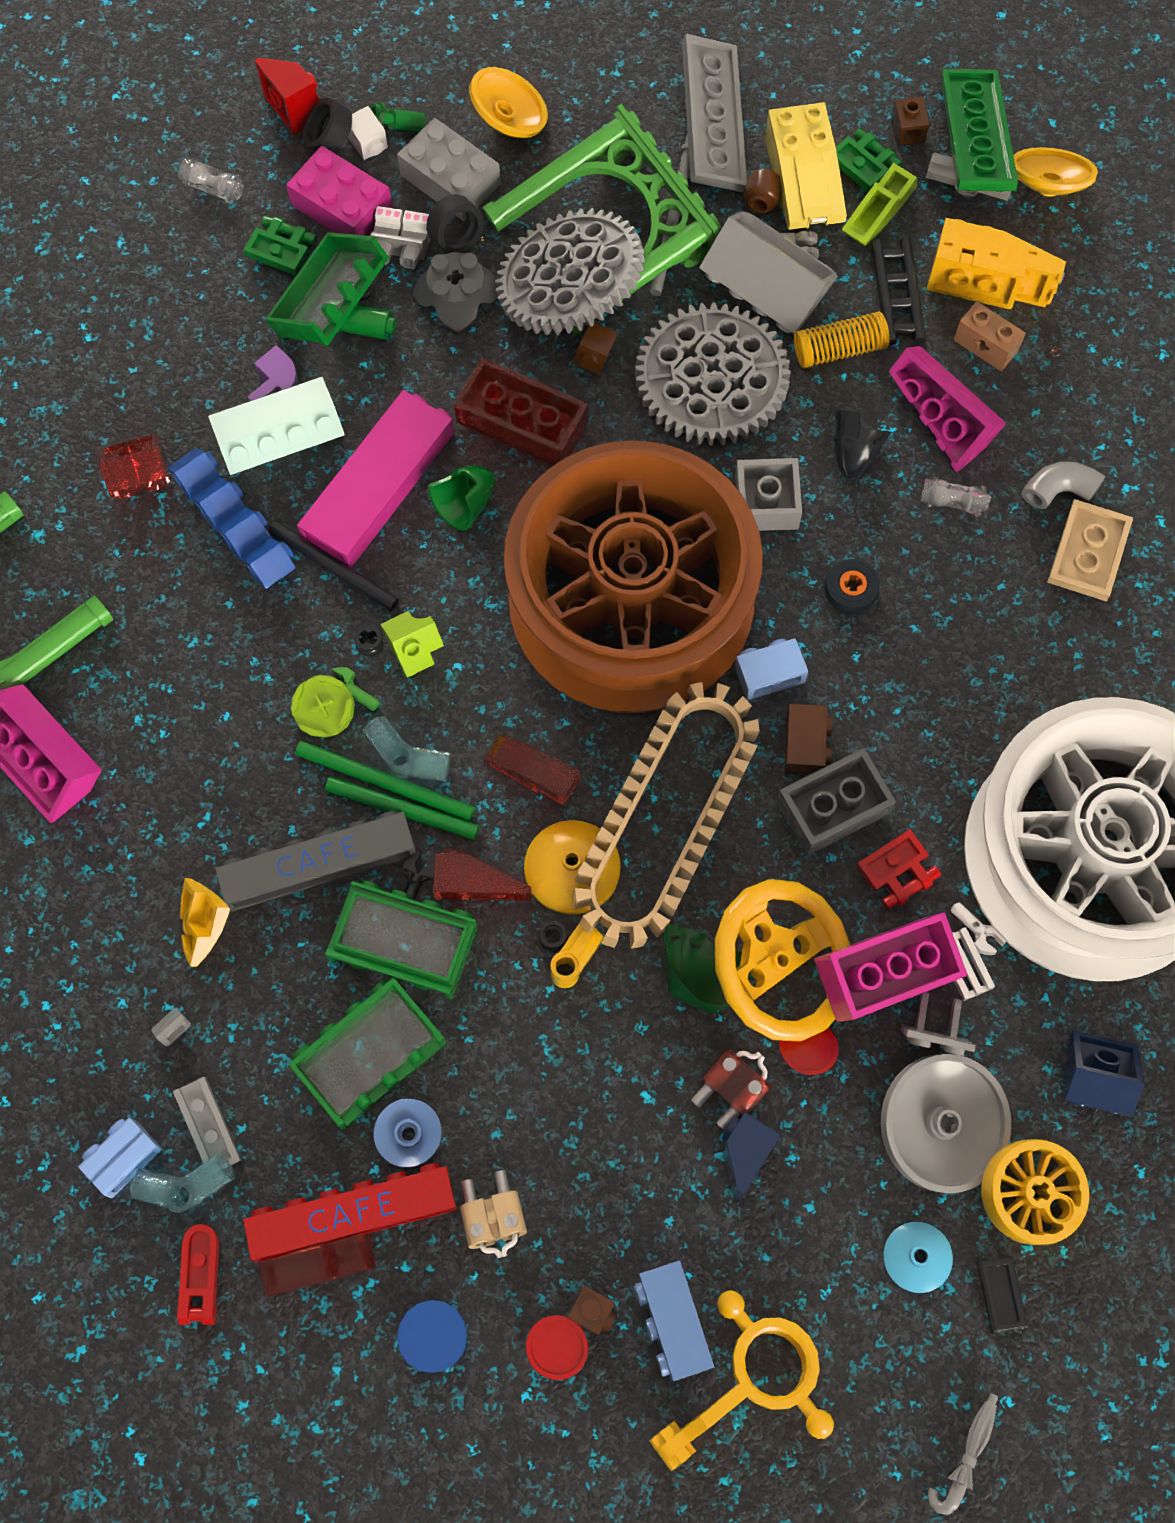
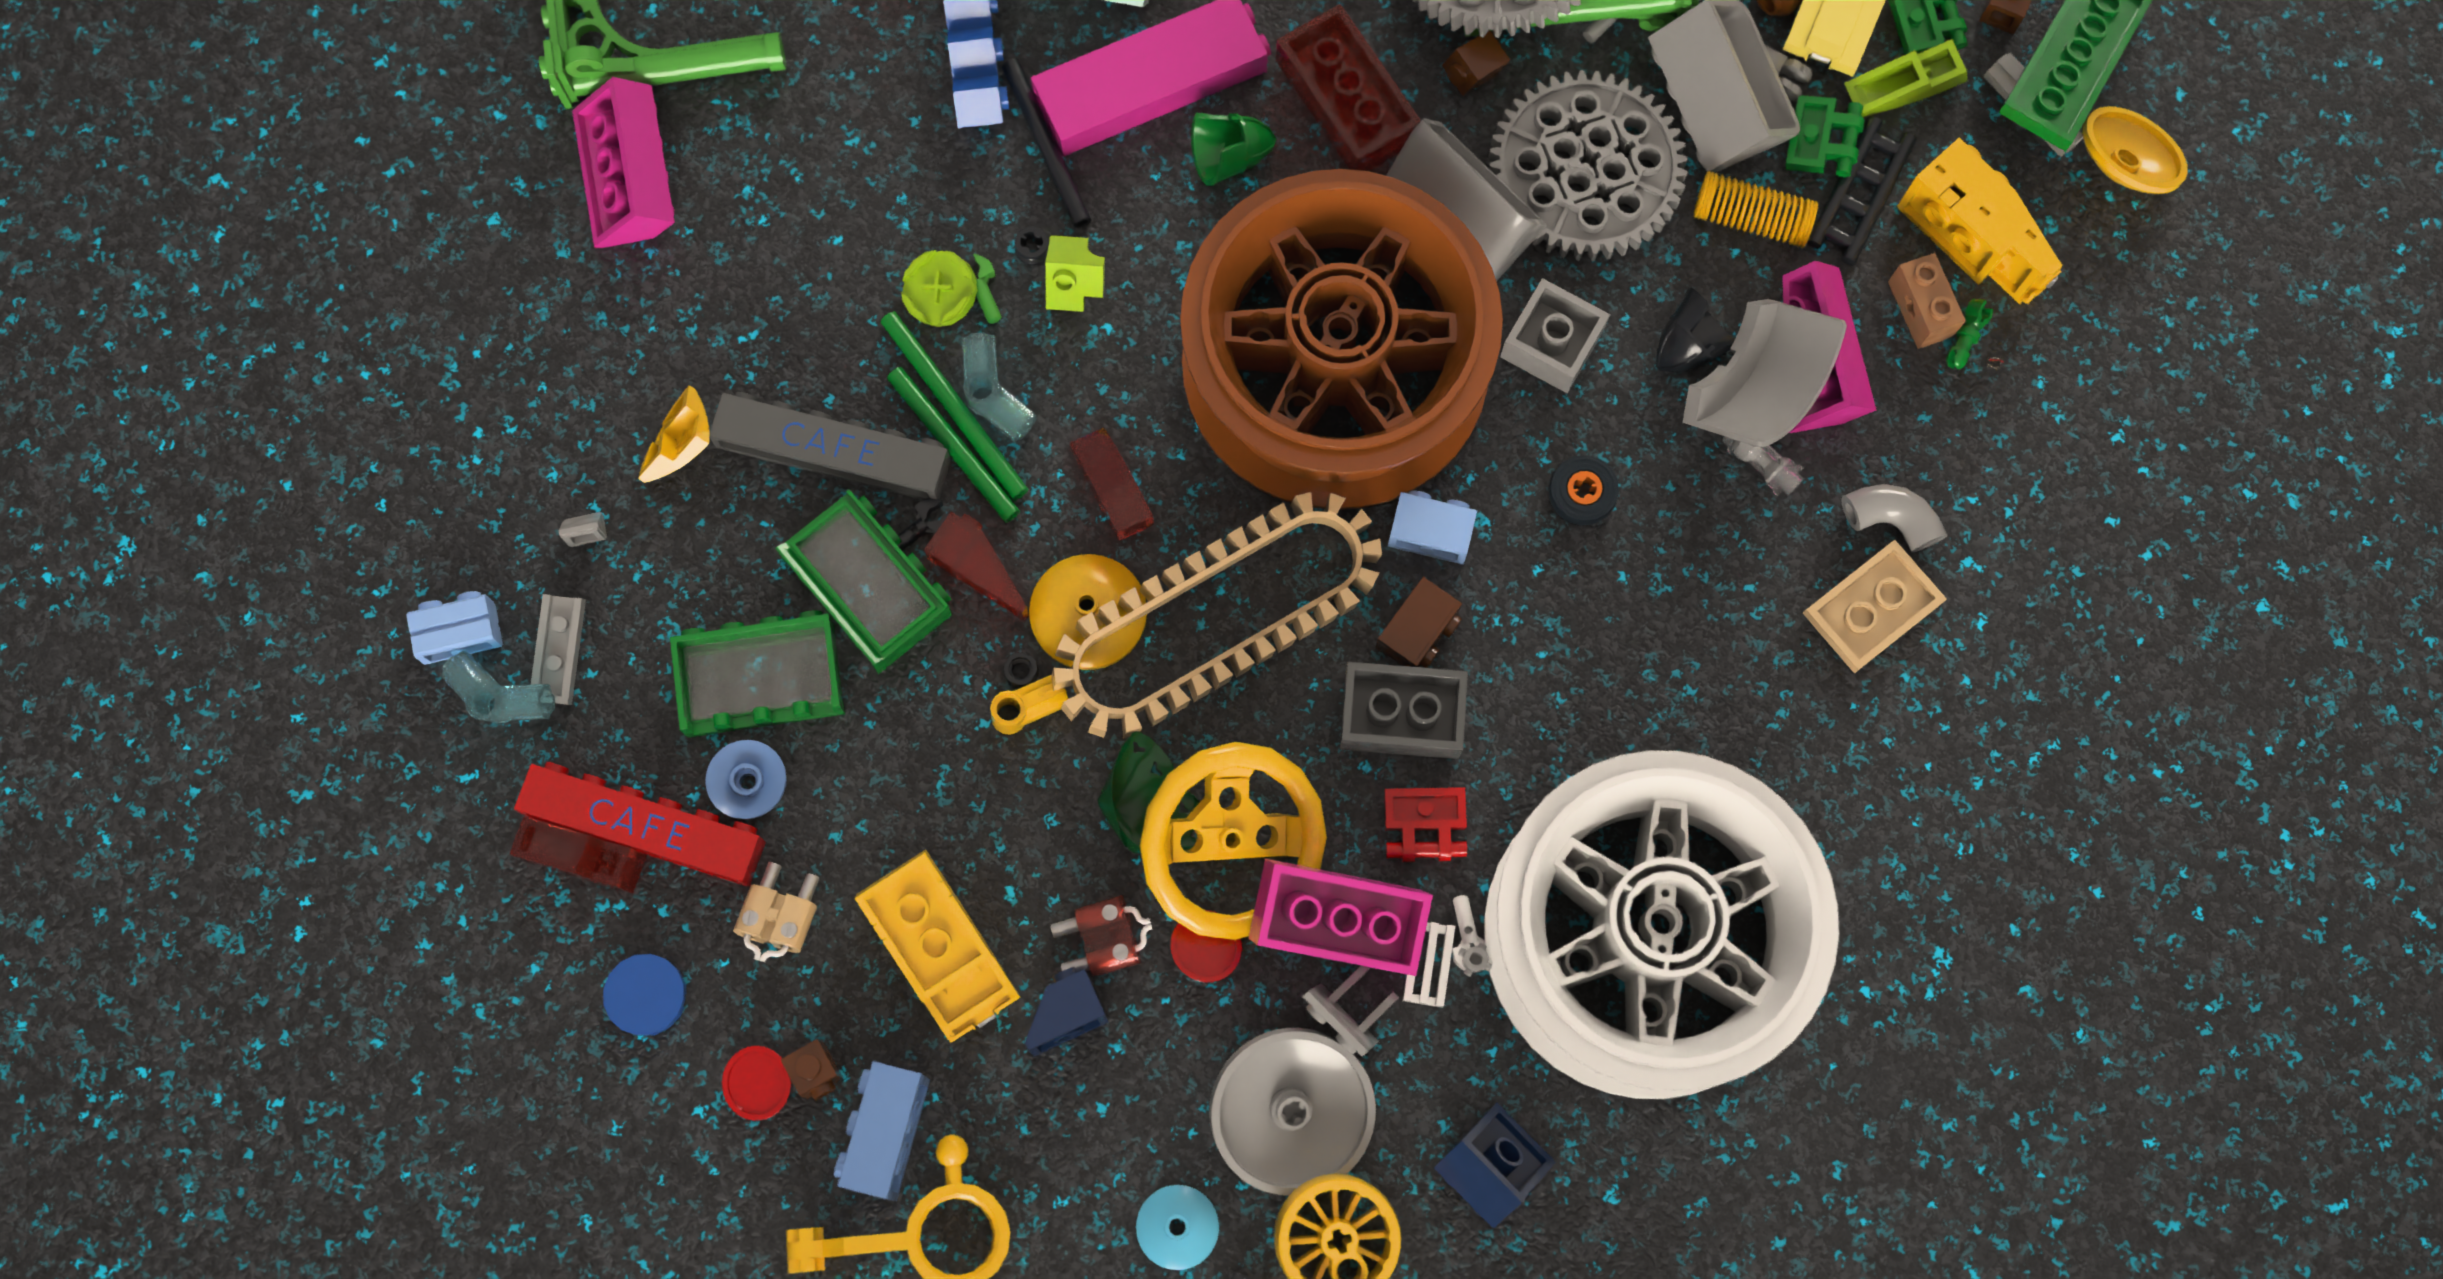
camera: 30 degrees right, 5 degrees up
(198, 1275) = (459, 792): red plate -> none
(621, 422) = (1455, 177): none -> light grey windscreen
(623, 1163) = (937, 946): none -> yellow piece
(850, 281) = (1812, 145): none -> green plate
(927, 438) = (1772, 378): none -> light grey panel
(995, 941) = (1475, 959): none -> light grey piece
(1029, 342) = (1976, 318): none -> green piece

